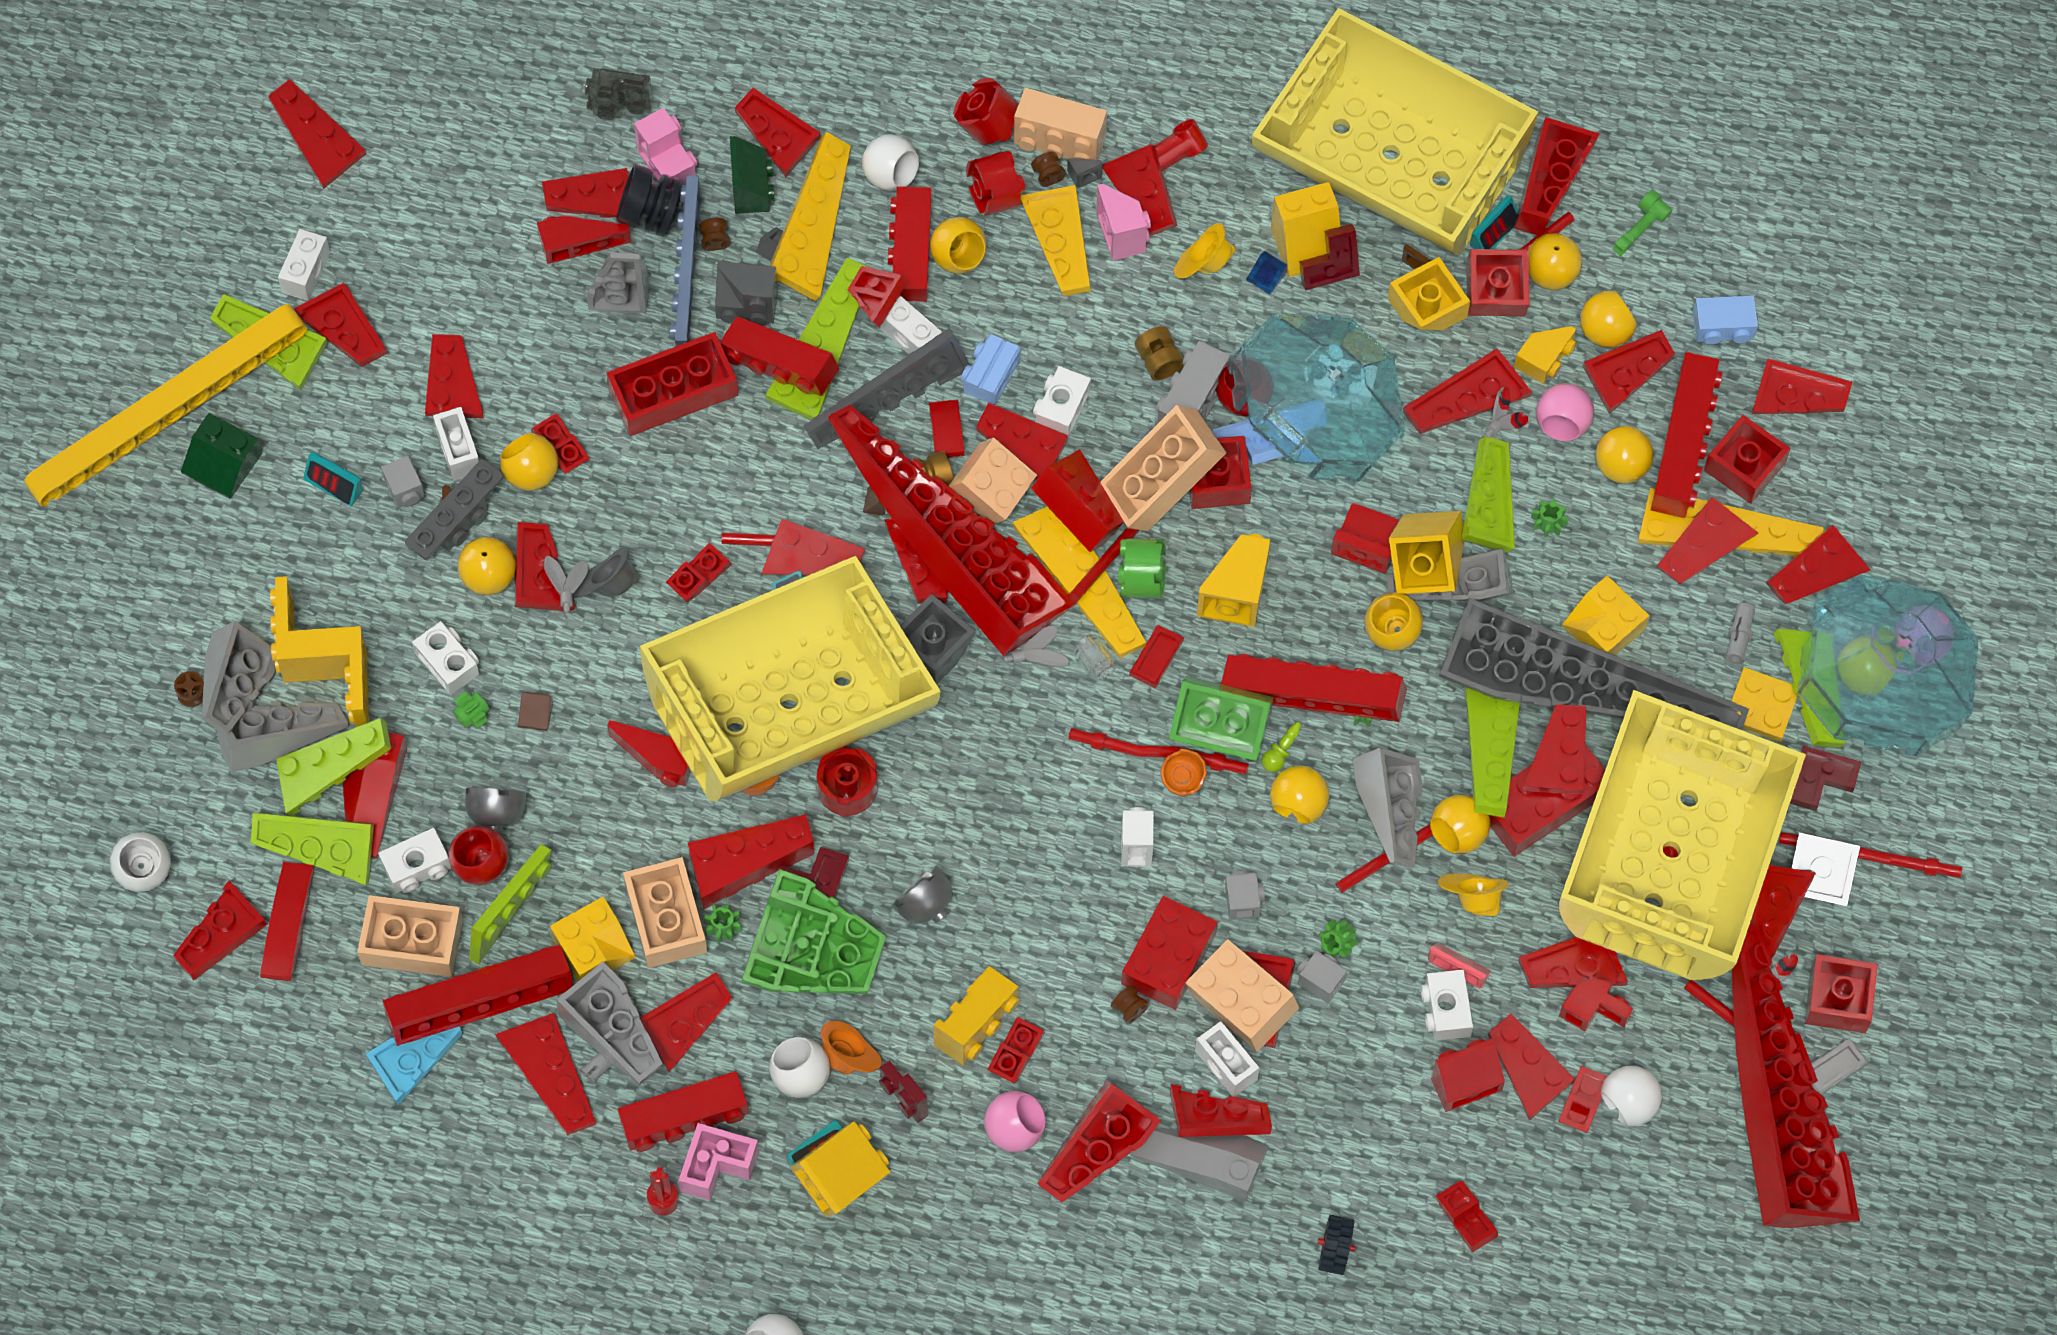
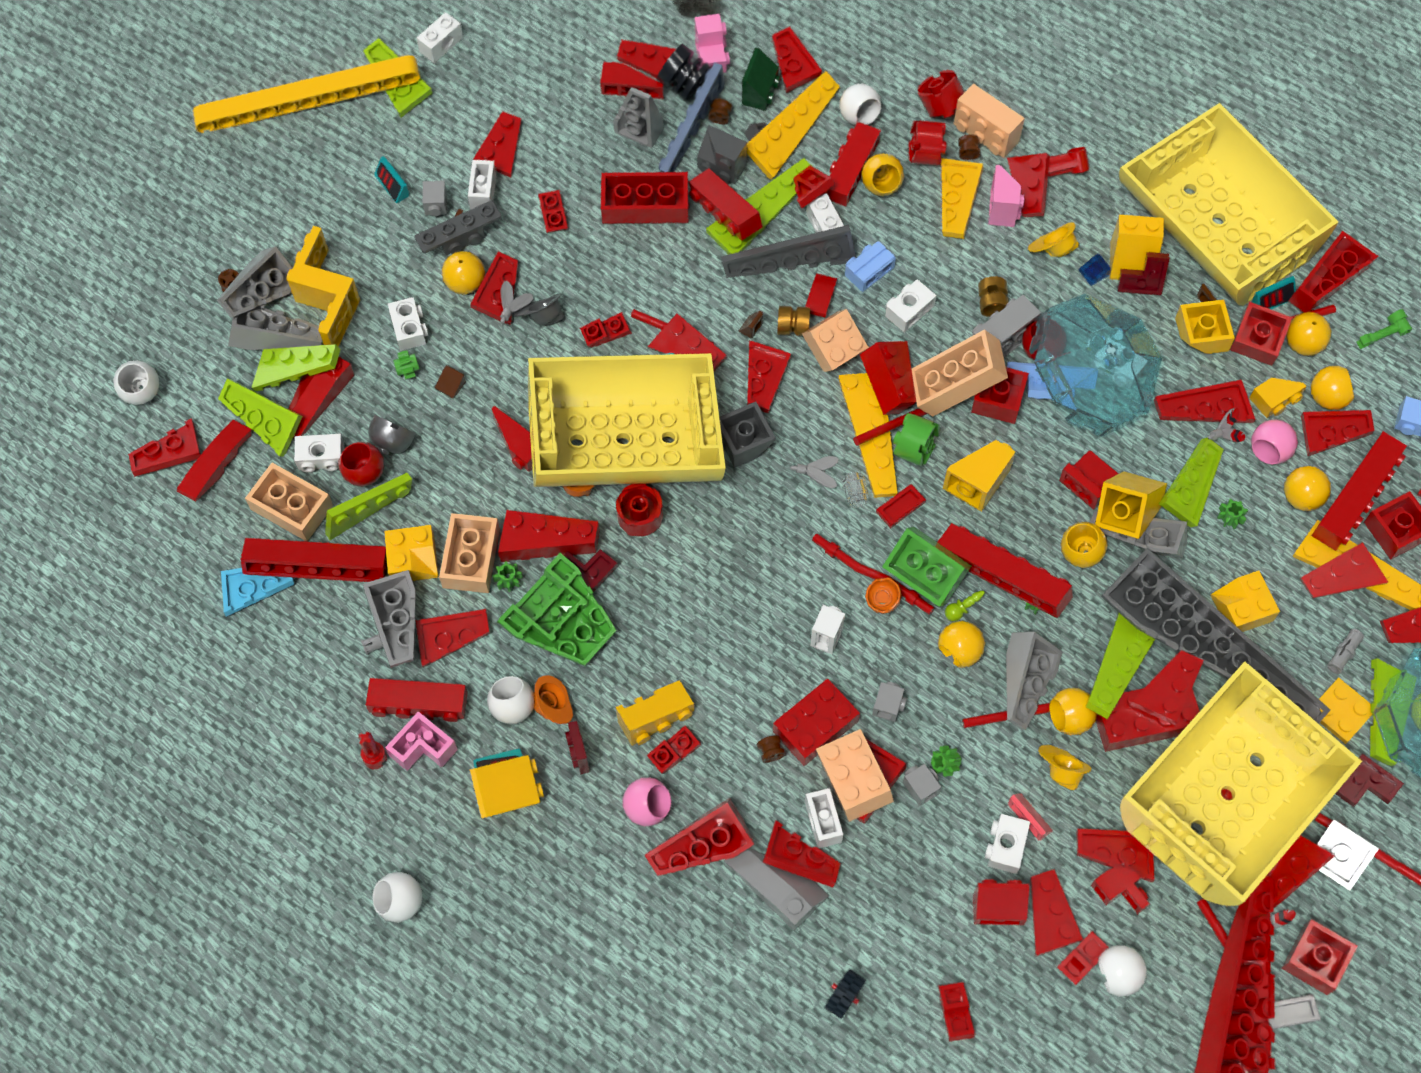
camera: 25 degrees right, 0 degrees up
(221, 455) = (326, 139): dark green slope -> none
(343, 324) = (447, 84): red wing -> none
(529, 462) = (524, 215): yellow helmet -> none
(547, 1065) = (340, 626): red wing -> none
(926, 898) = (657, 614): flat silver cylinder -> none
(984, 572) = (801, 399): red wedge -> none
(1027, 440) = (871, 319): red wing -> none
(1084, 171) = (993, 156): dark grey slope -> none

